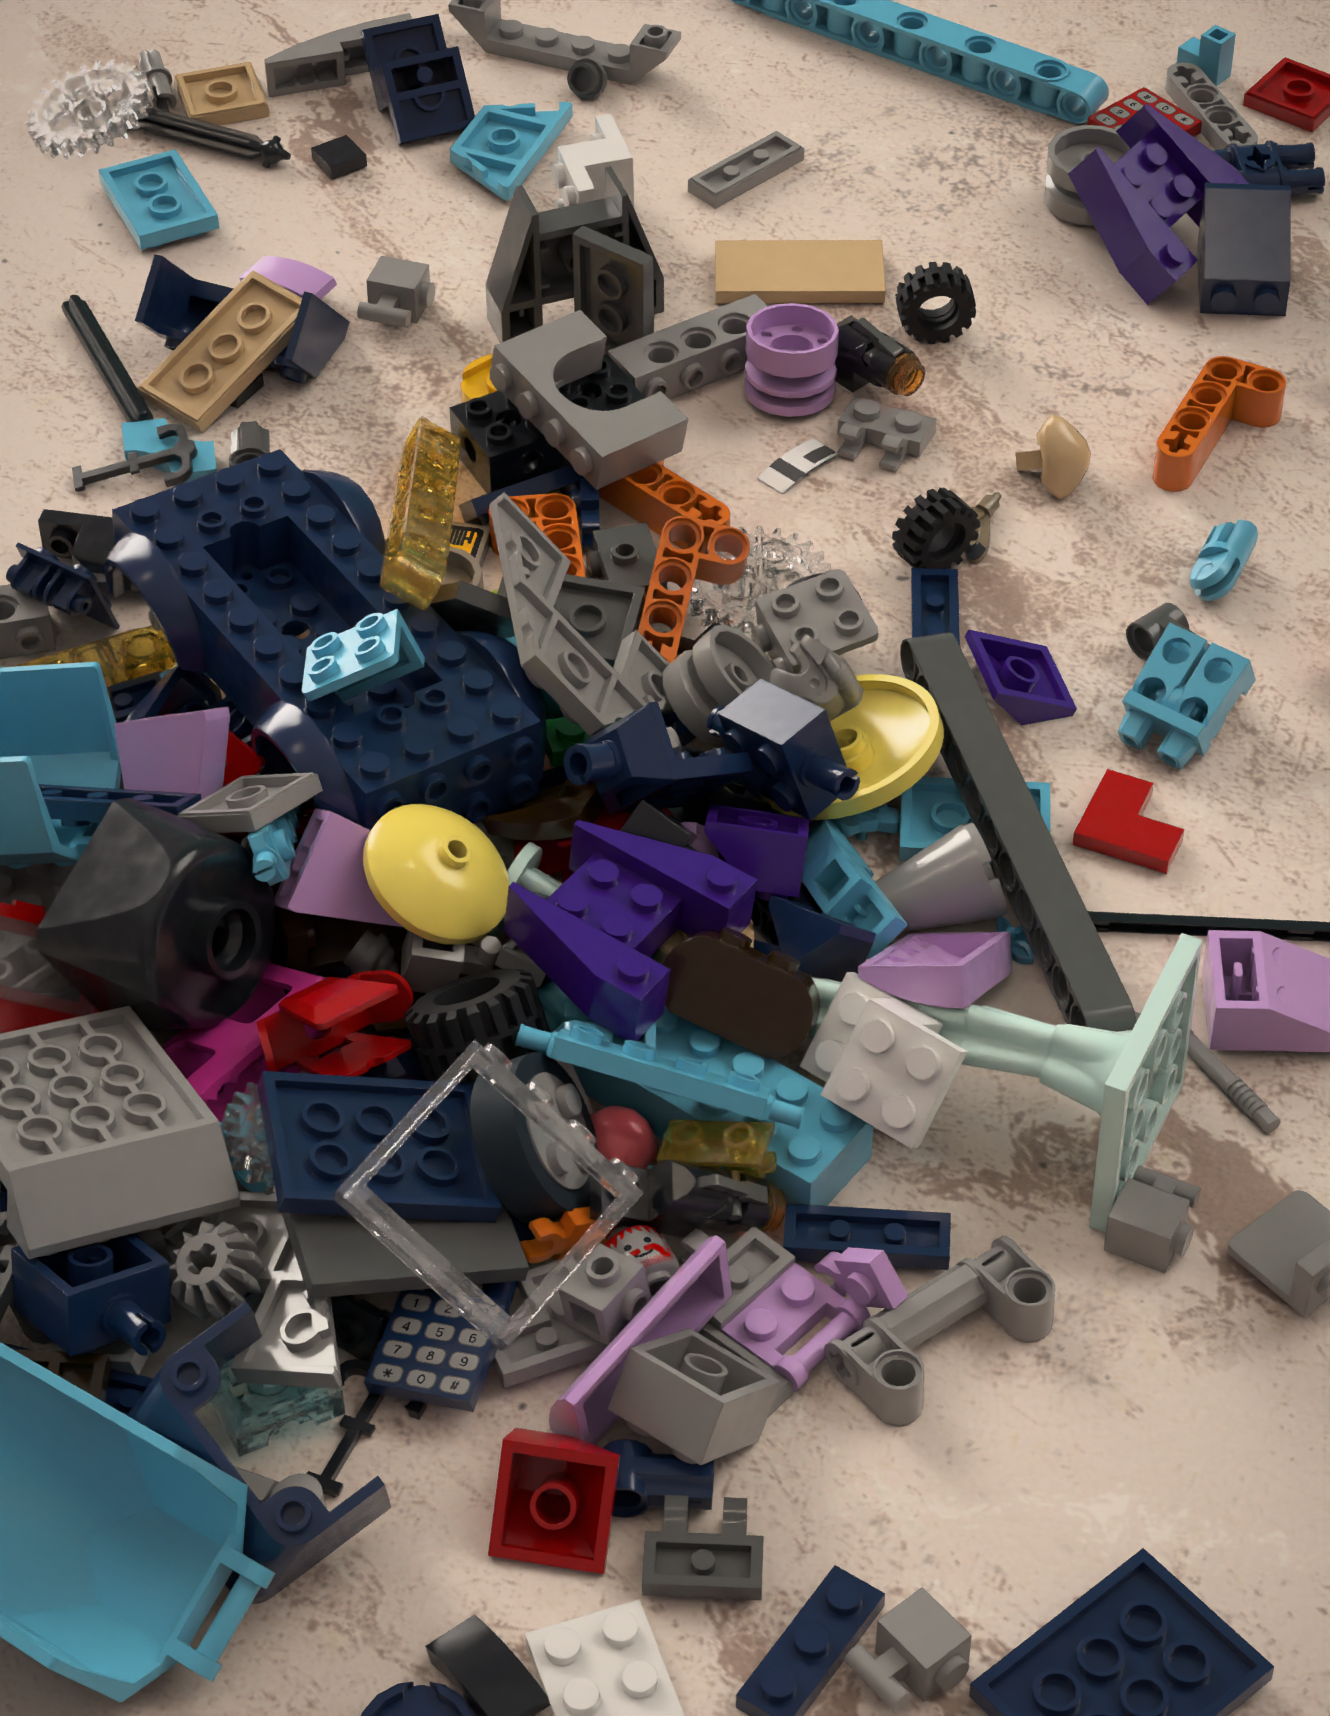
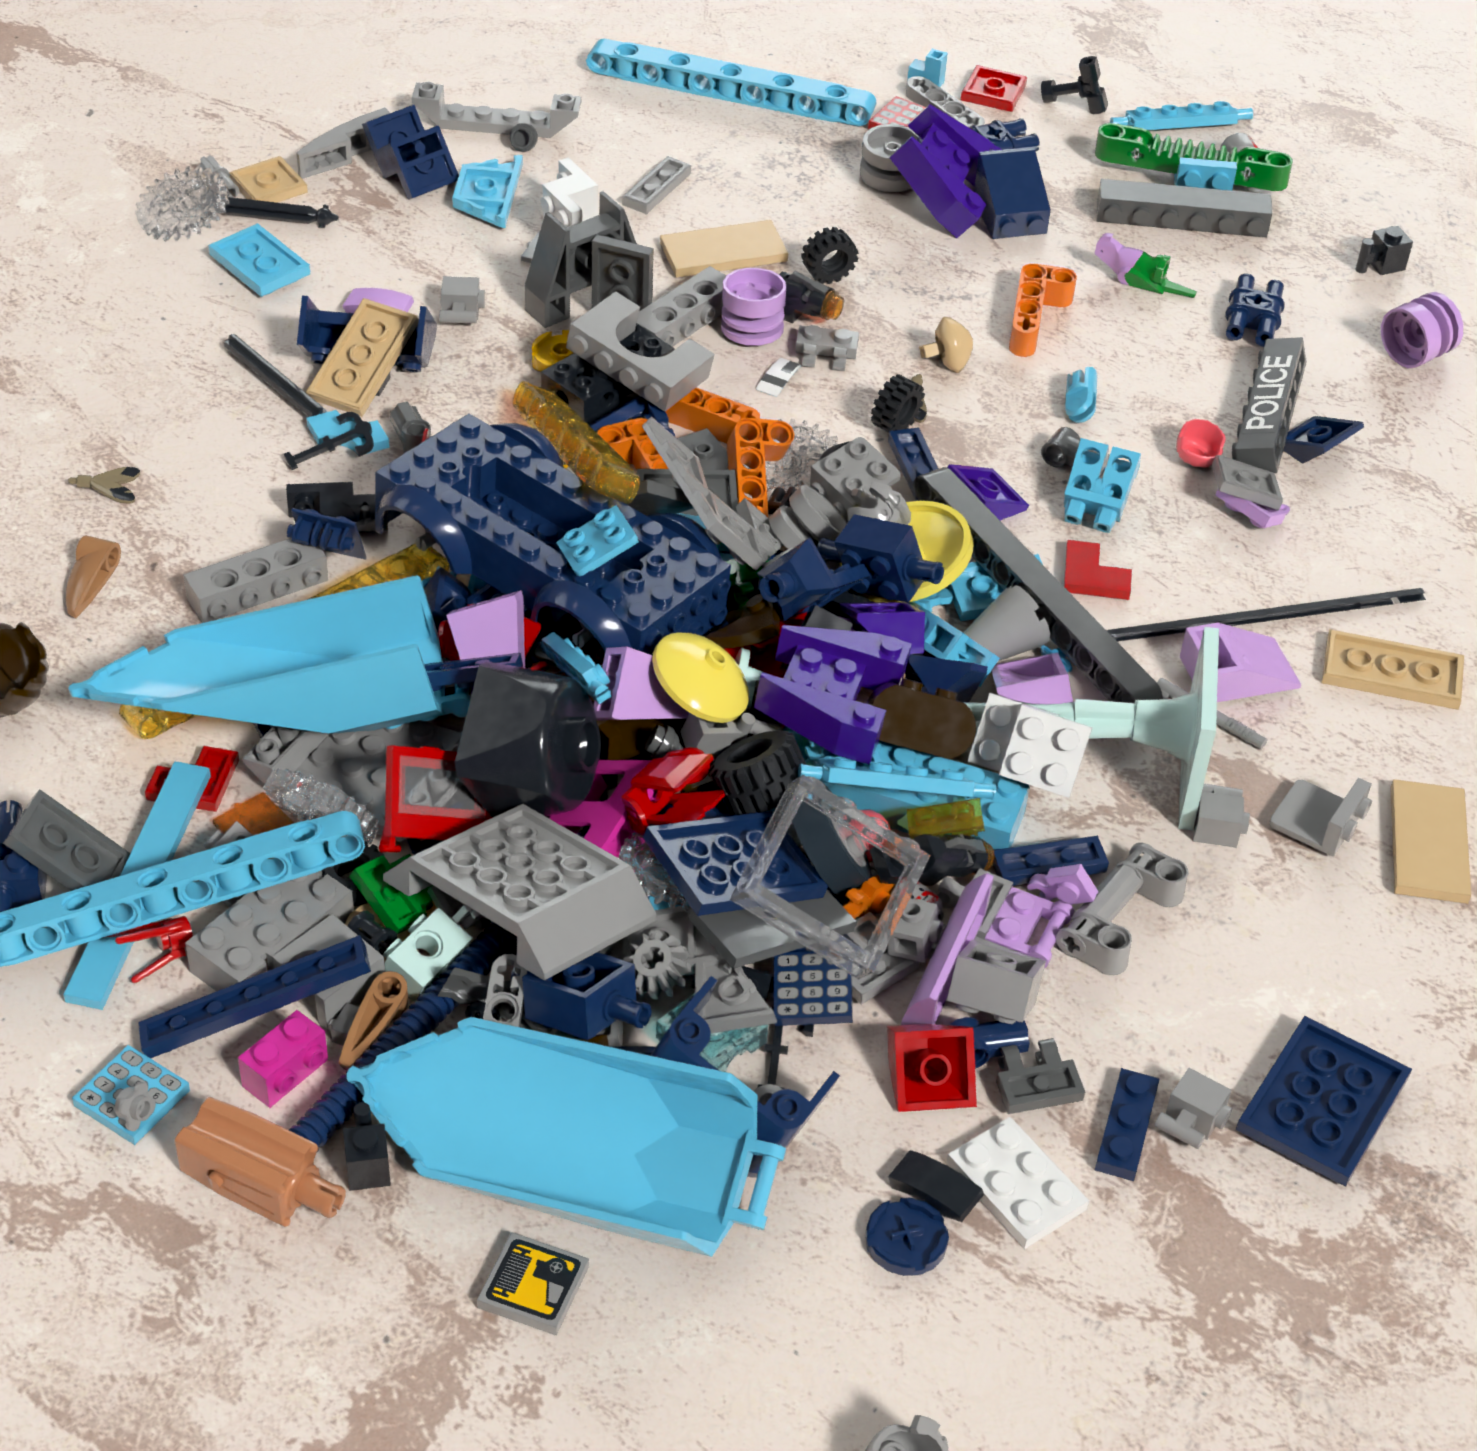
camera: 20 degrees left, 0 degrees up
(252, 801) = (566, 650): light grey tile -> none
(339, 157) = (372, 213): black tile -> none

